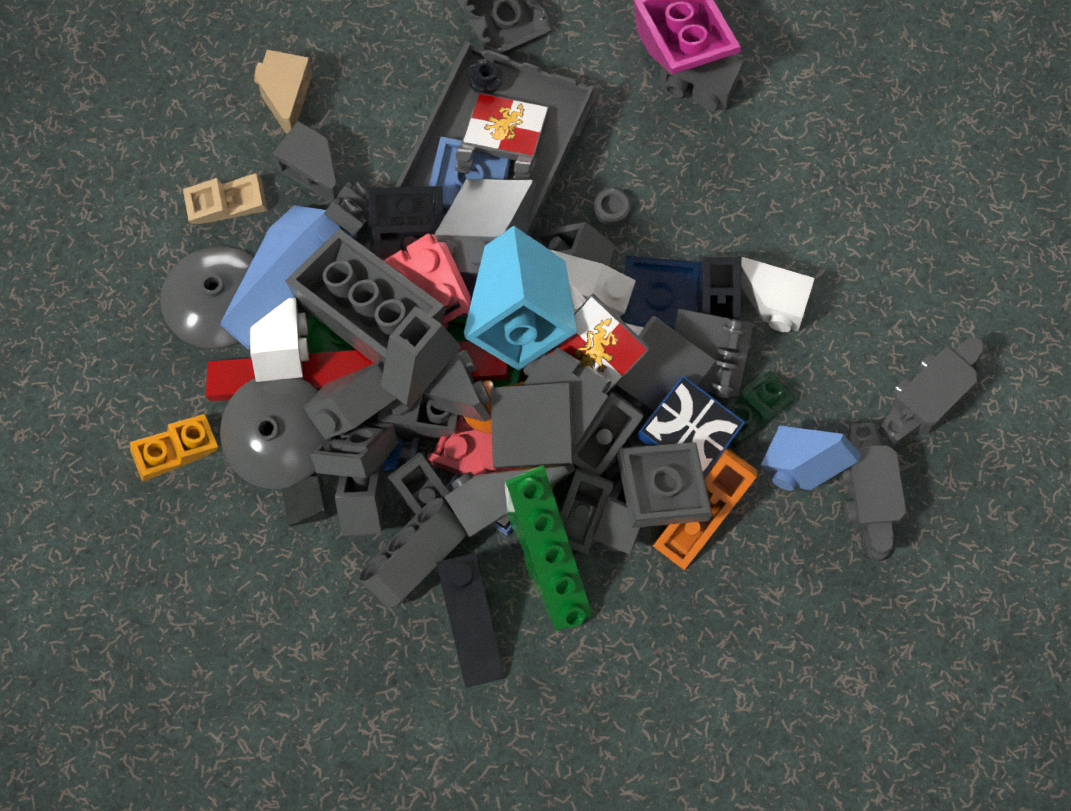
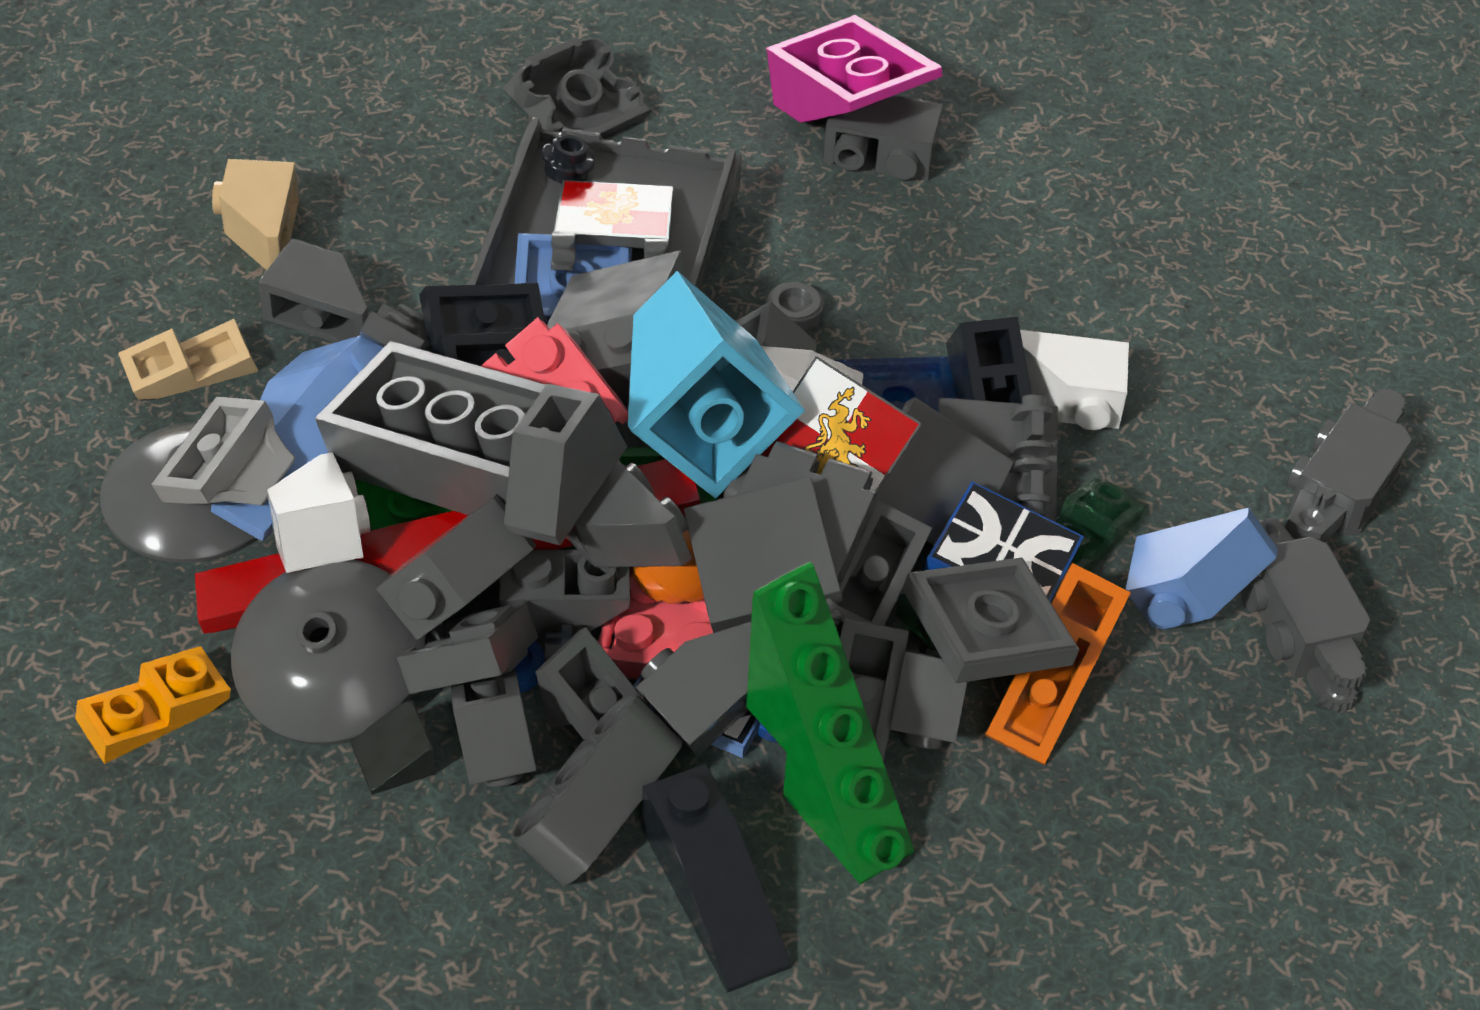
camera: 15 degrees left, 20 degrees down
(231, 296) = (226, 457): none -> light grey slope

